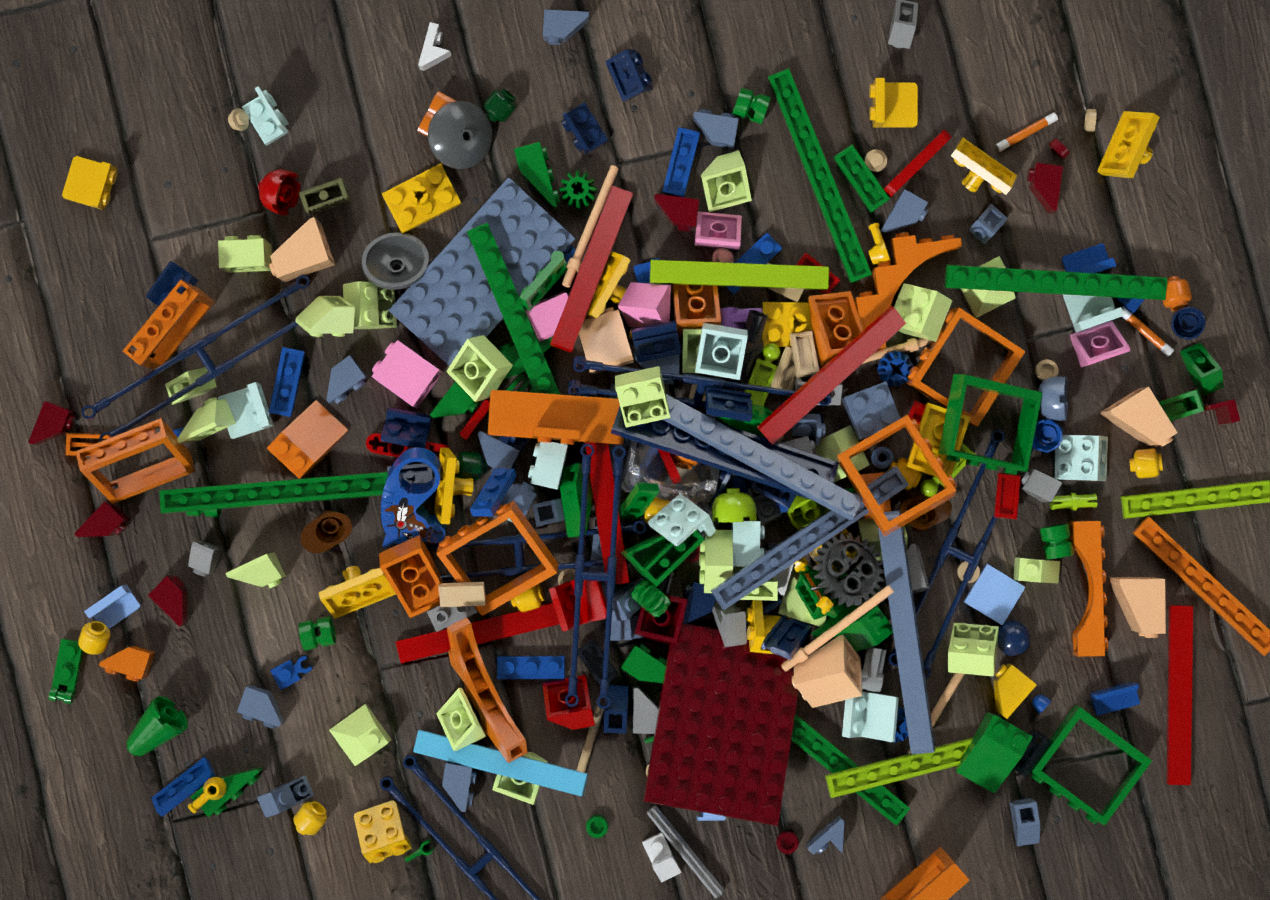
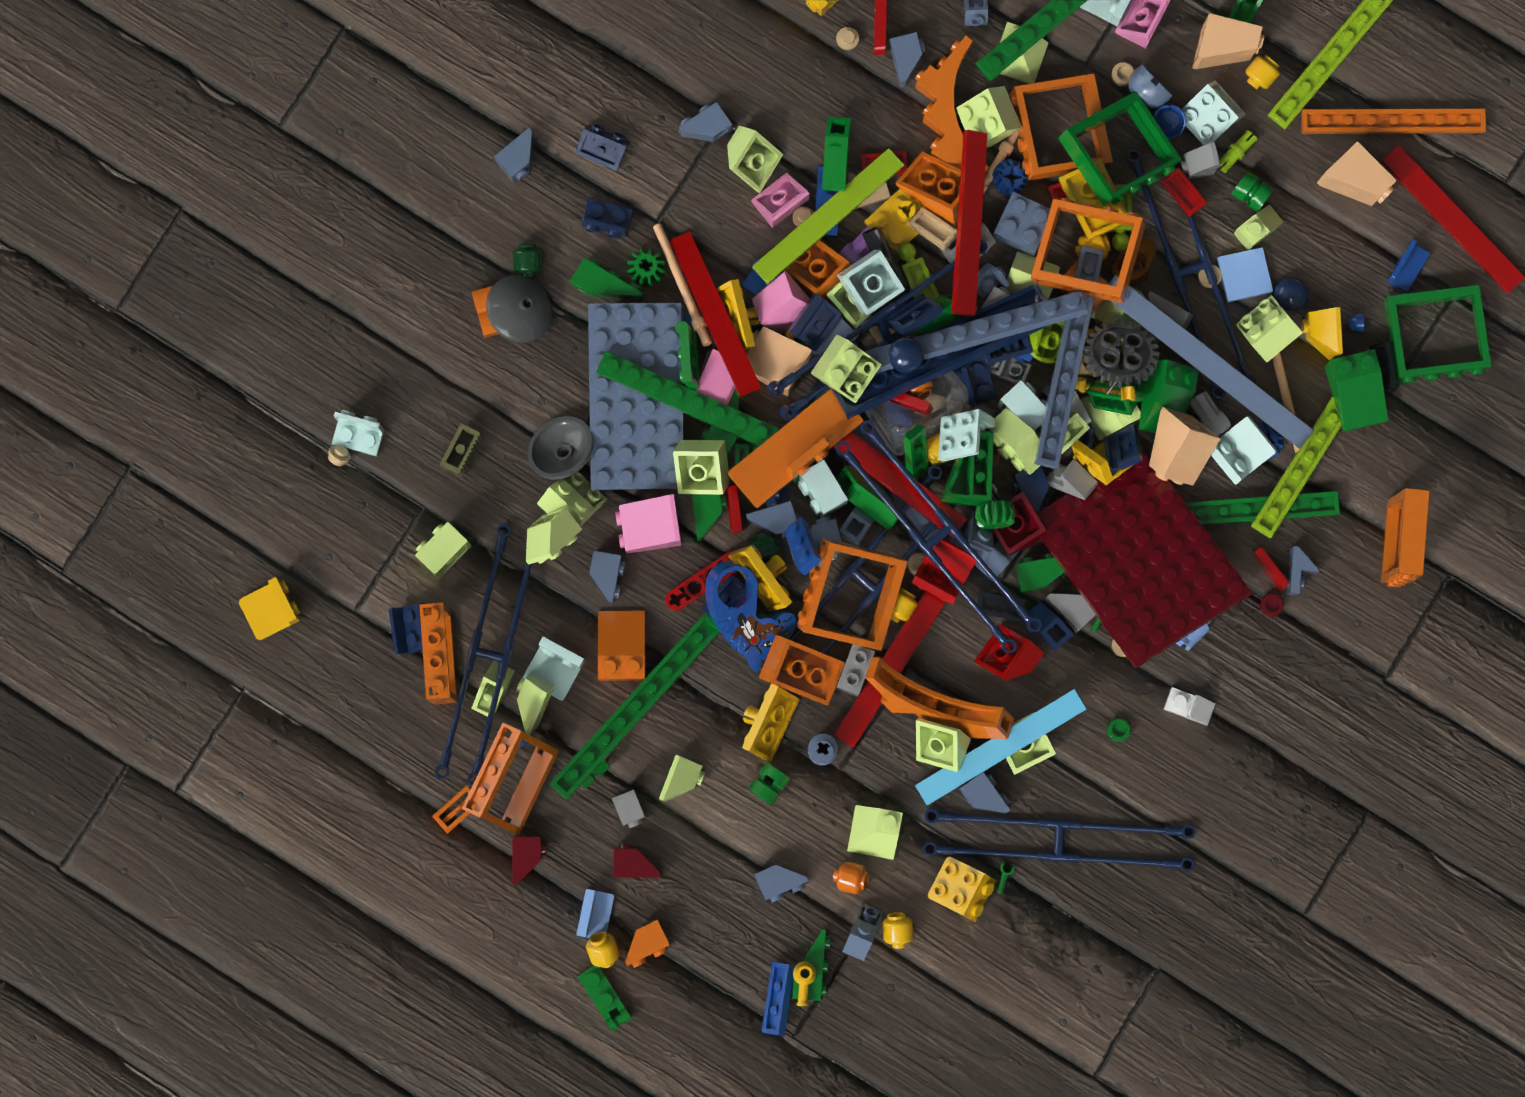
camera: 45 degrees left, 5 degrees down
(51, 423) = (414, 817): dark red slope -> none
(156, 726) = (715, 973): green cone -> none
(279, 191) = (421, 479): red cylinder -> none
(287, 382) = (564, 617): blue plate -> none
(289, 673) = (774, 837): blue plate -> none
(302, 253) = (486, 507): light nougat slope -> none
(312, 752) = (851, 877): none -> orange head
(325, 531) = (702, 700): reddish brown piece -> none
(369, 651) = (822, 759): none -> sand blue piece
(406, 428) = (687, 565): dark blue bracket -> none
(421, 198) = (534, 385): yellow plate -> none
(430, 53) = (438, 269): white slope -> none
(462, 594) = (852, 645): tan tile -> none
(530, 667) = (953, 657): blue plate -> none
(589, 742) = (1052, 672): tan bar -> none
(679, 210) = (737, 212): dark red slope -> none
(681, 162) = (704, 175): blue plate -> none
(685, 851) = (1202, 684): light grey axle -> none
(694, 427) = (906, 355): none -> dark blue hair
(733, 506) = (990, 388): lime cylinder -> none
(751, 105) = (716, 84): green wheel -> none
(785, 373) = (931, 255): tan tile -> none
(788, 236) = (837, 153): none -> green slope
(803, 653) = (1147, 449): light nougat bar -> none
(810, 817) = (1270, 568): none -> red tile
(819, 175) = (816, 88): green plate -> none
(861, 178) = (849, 61): green plate -> none
(879, 252) = (915, 104): yellow bar -> none
(889, 457) = (1064, 245): medium blue plate -> none
(1025, 821) = (1431, 419): sand blue slope -> none
(1089, 634) = (1343, 237): orange arch -> none

